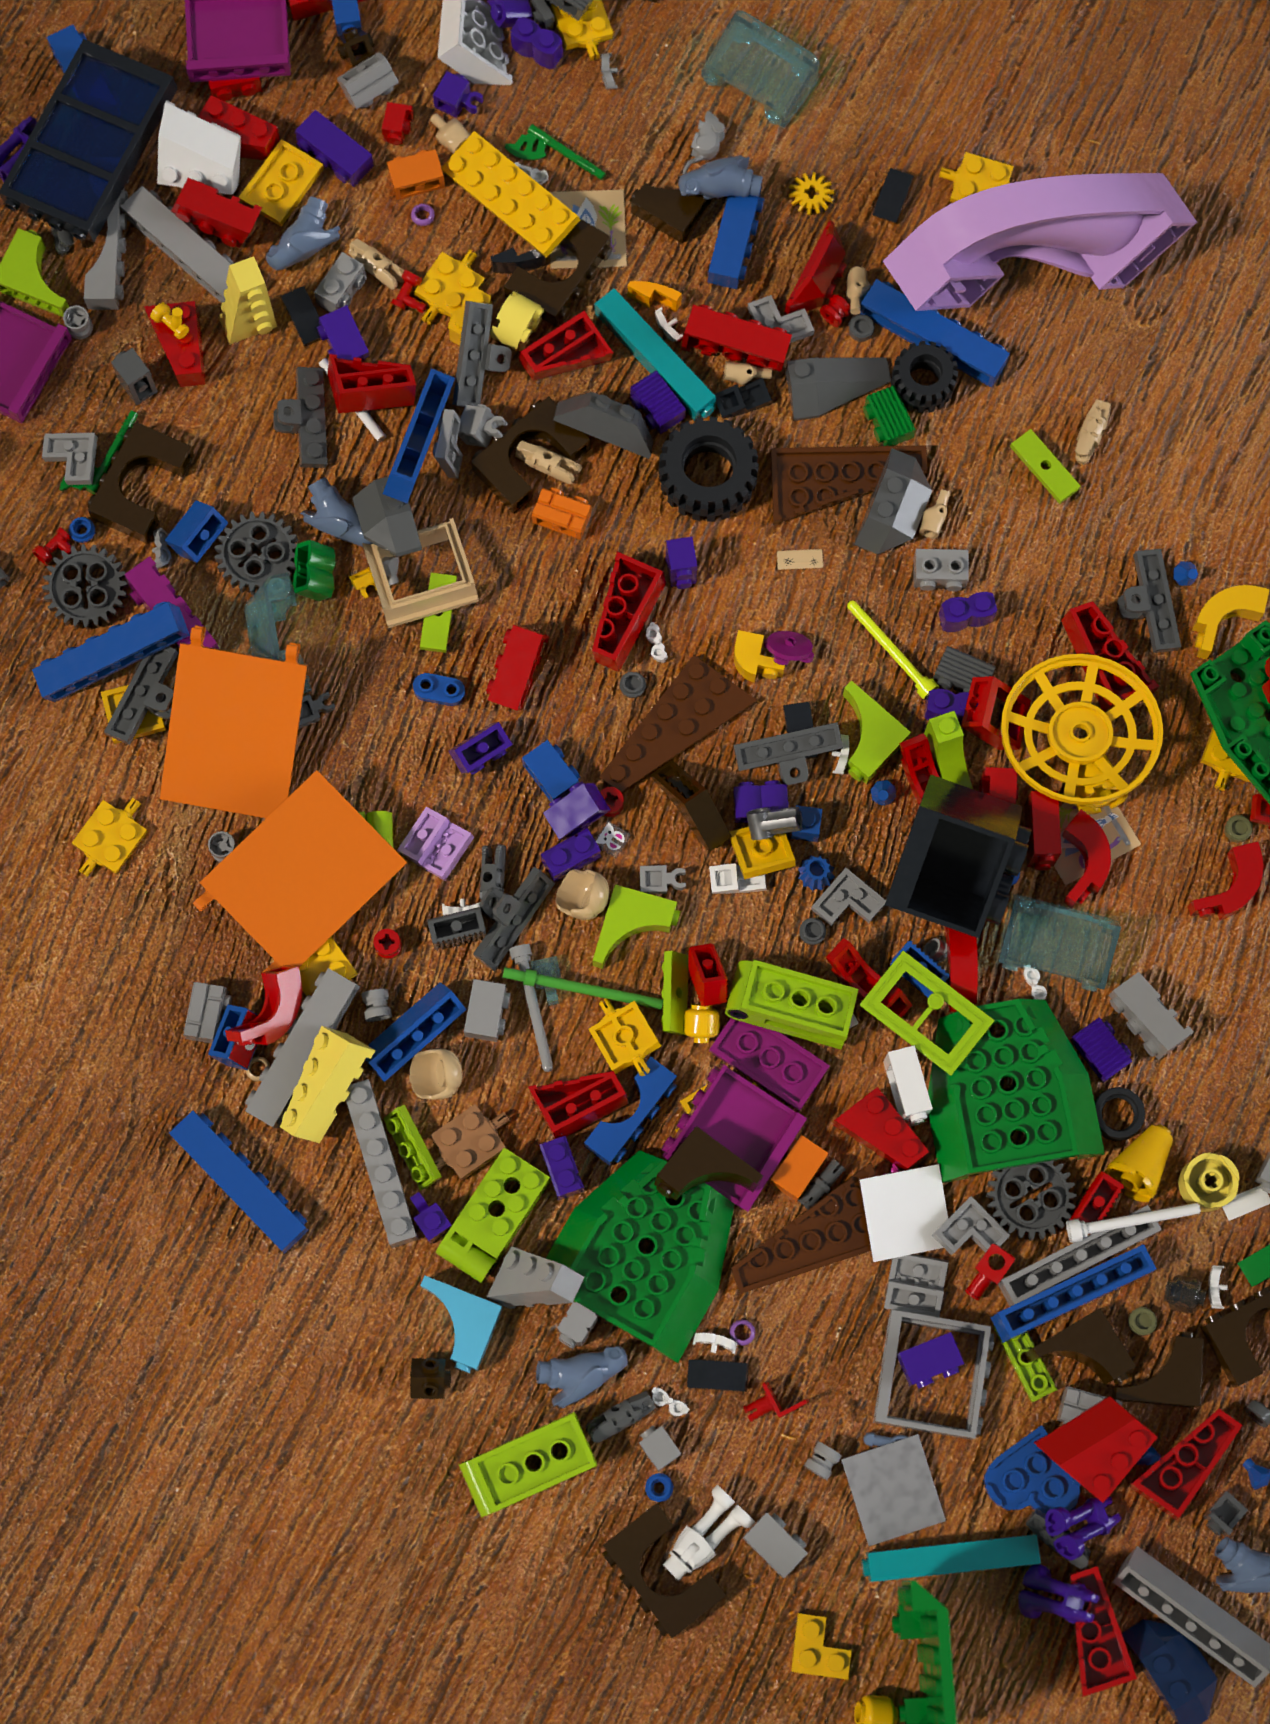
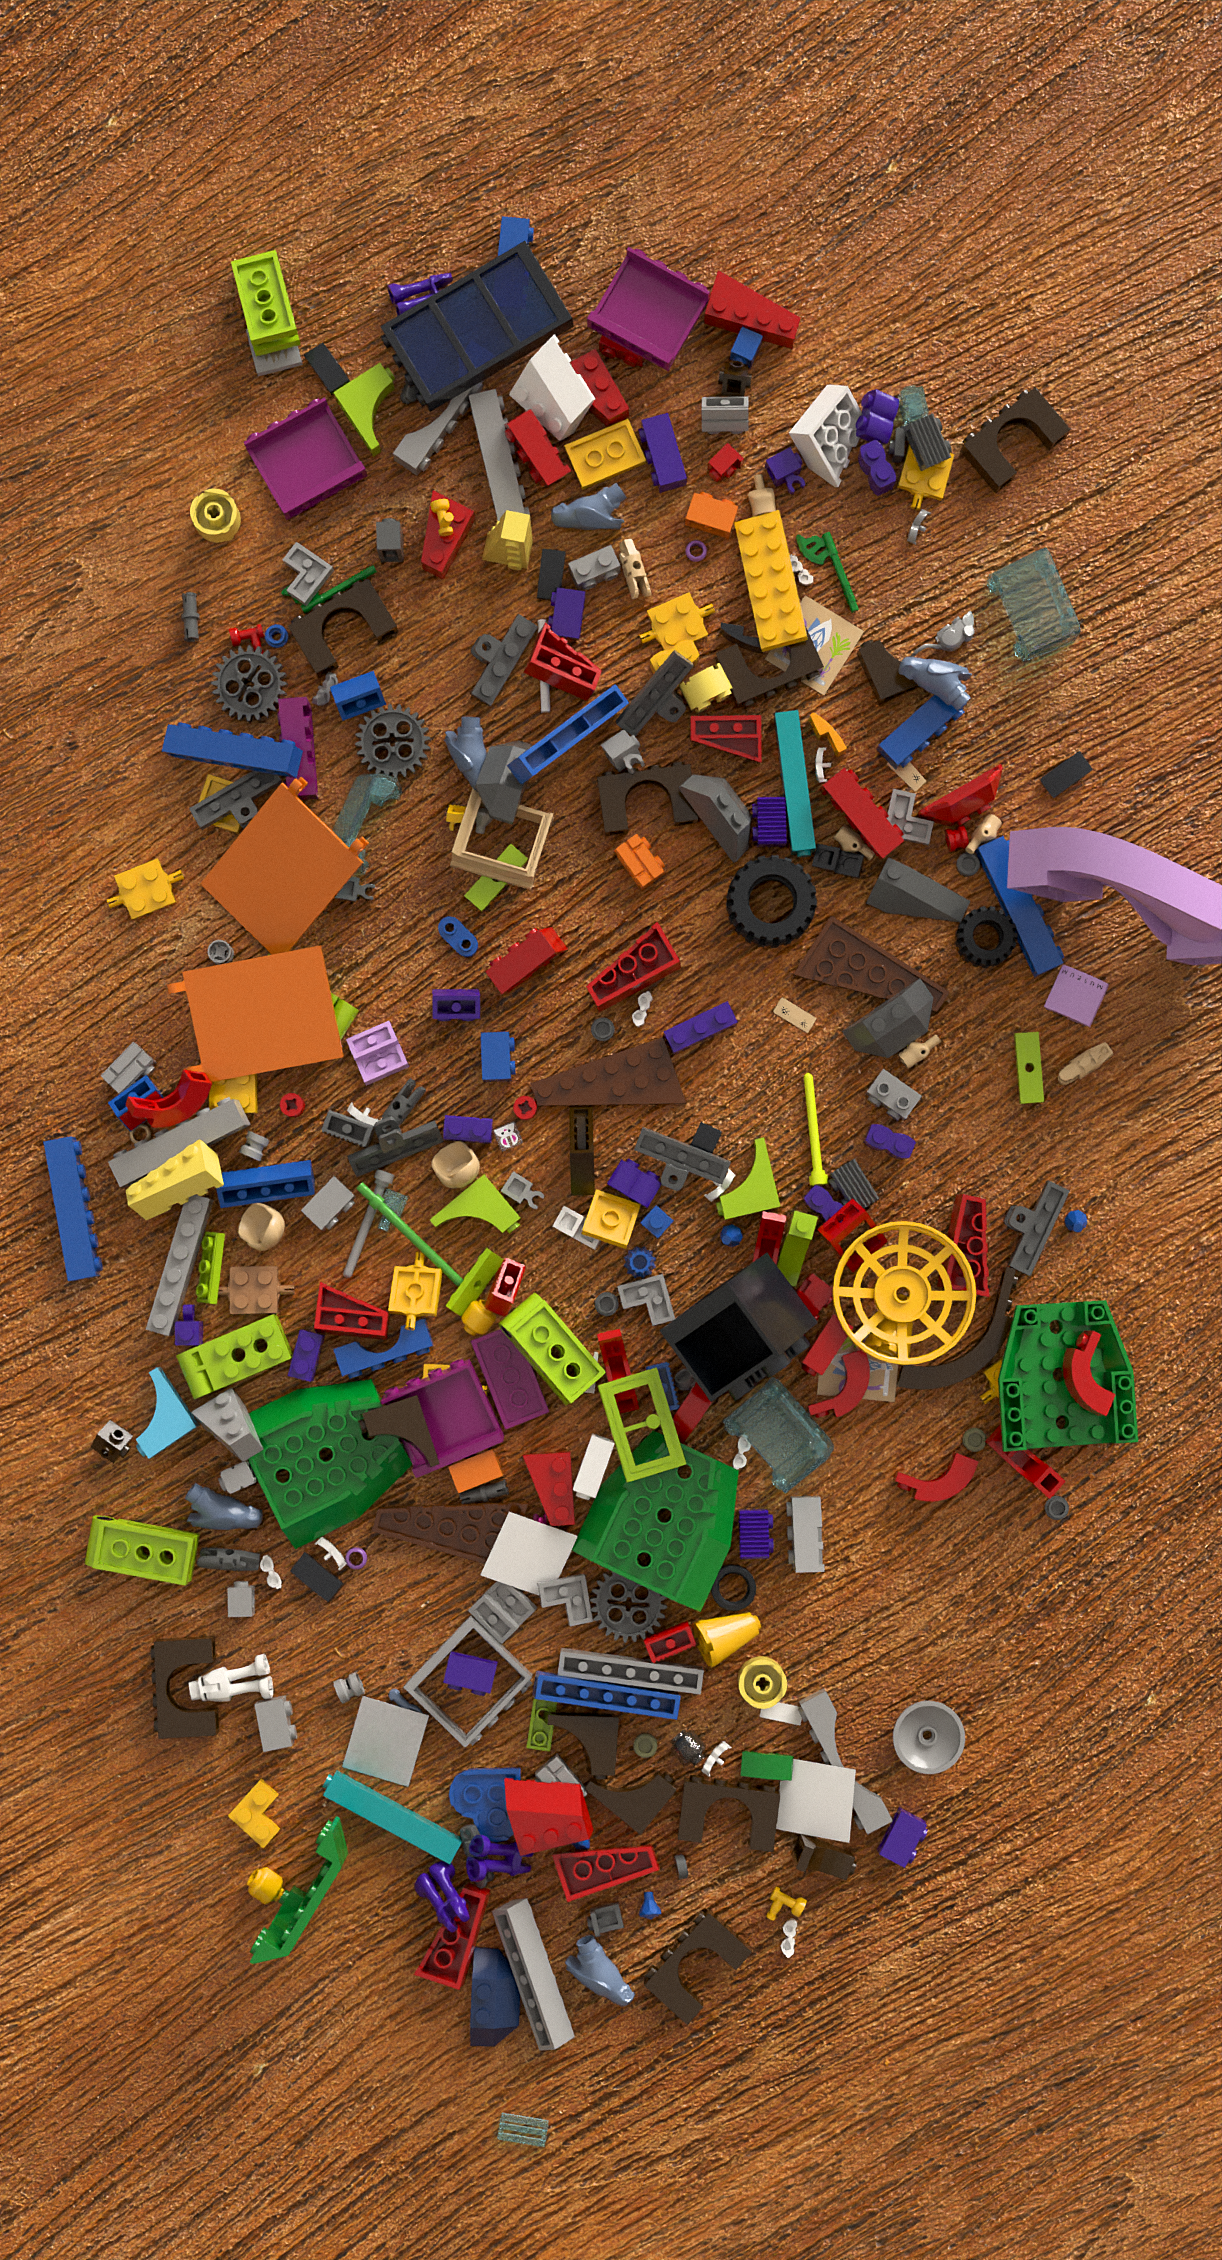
camera: 35 degrees right, 10 degrees up
(77, 316) = (378, 462): light grey wheel -> none
(314, 570) = (424, 784): green brick -> none
(403, 298) = (635, 610): red piece -> none
(446, 450) = (583, 758): light grey plate -> none
(548, 462) = (656, 814): tan hinge -> none
(576, 810) = (493, 1099): dark purple brick -> none
(649, 1487) = (216, 1629): blue plate -> none
(681, 562) = (699, 962): dark purple brick -> none
(722, 623) = (700, 1028): none -> dark purple brick
(749, 658) = (700, 1069): yellow brick -> none
(753, 286) = (909, 775): none -> tan sticker
(766, 822) = (625, 1205): flat silver piece -> none
(769, 1403) = (341, 1622): red bracket -> none
(789, 646) = (736, 1080): magenta piece -> none
(818, 200) = (1005, 740): yellow gear -> none
(889, 417) = (937, 951): green brick -> none
(976, 175) = (1141, 810): yellow plate -> none
(987, 1273) = (558, 1638): red bracket -> none
(1041, 377) = (1076, 995): none -> lavender slope
(1079, 1229) = (641, 1655): white piece -> none
(1189, 731) = (975, 1358): none -> dark brown arch
(1236, 601) = (1099, 1270): yellow arch -> none

